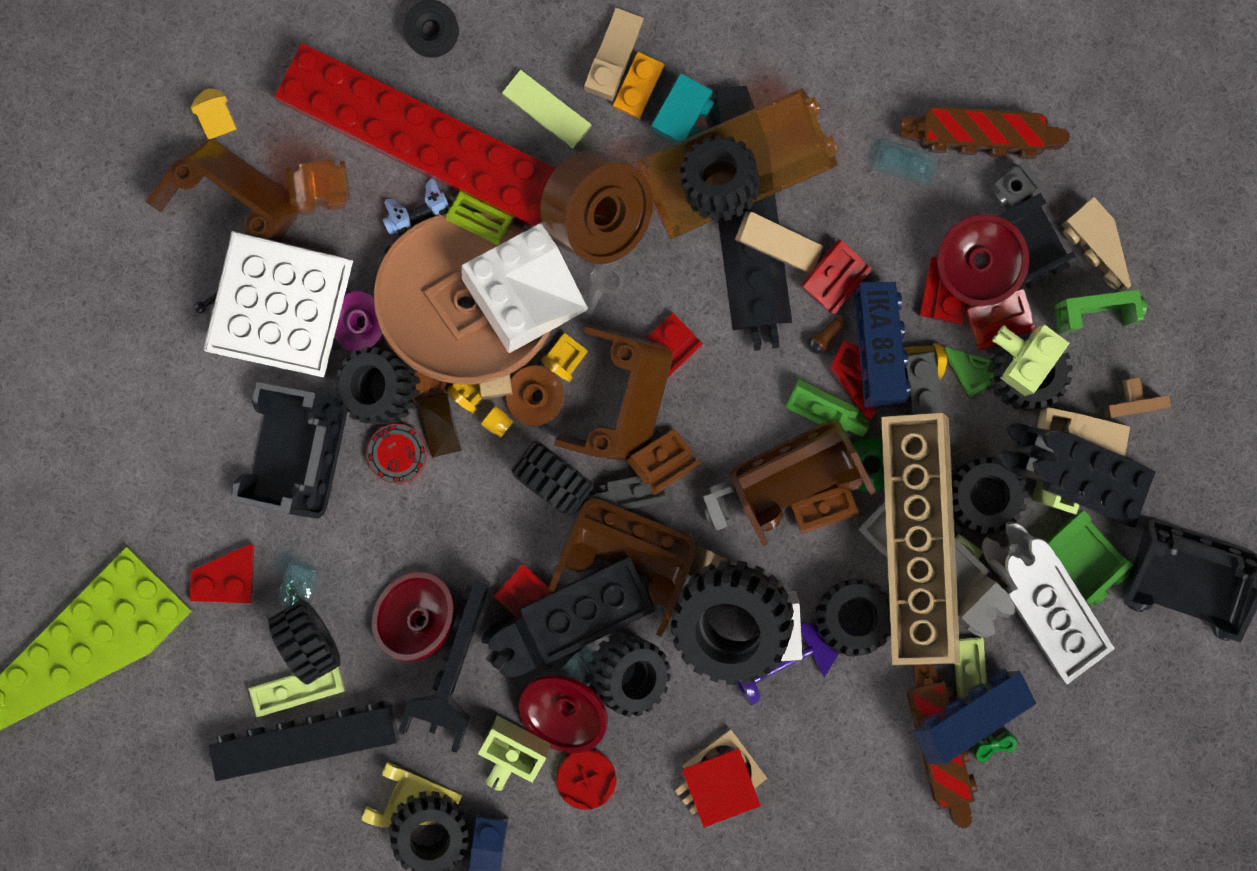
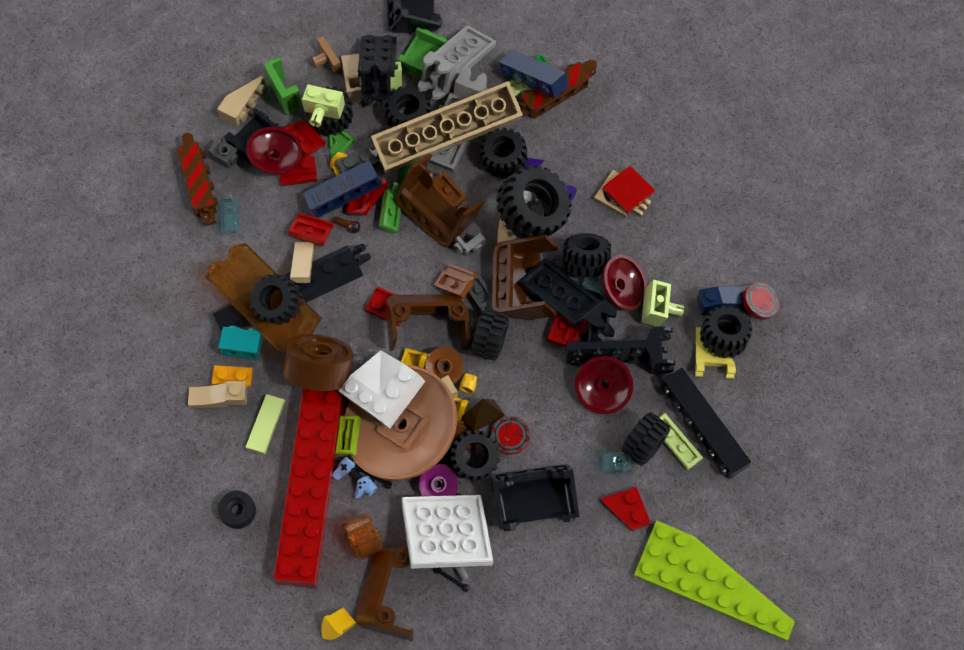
camera: 110 degrees left, 20 degrees down
(586, 779) = (656, 263): red tile -> none

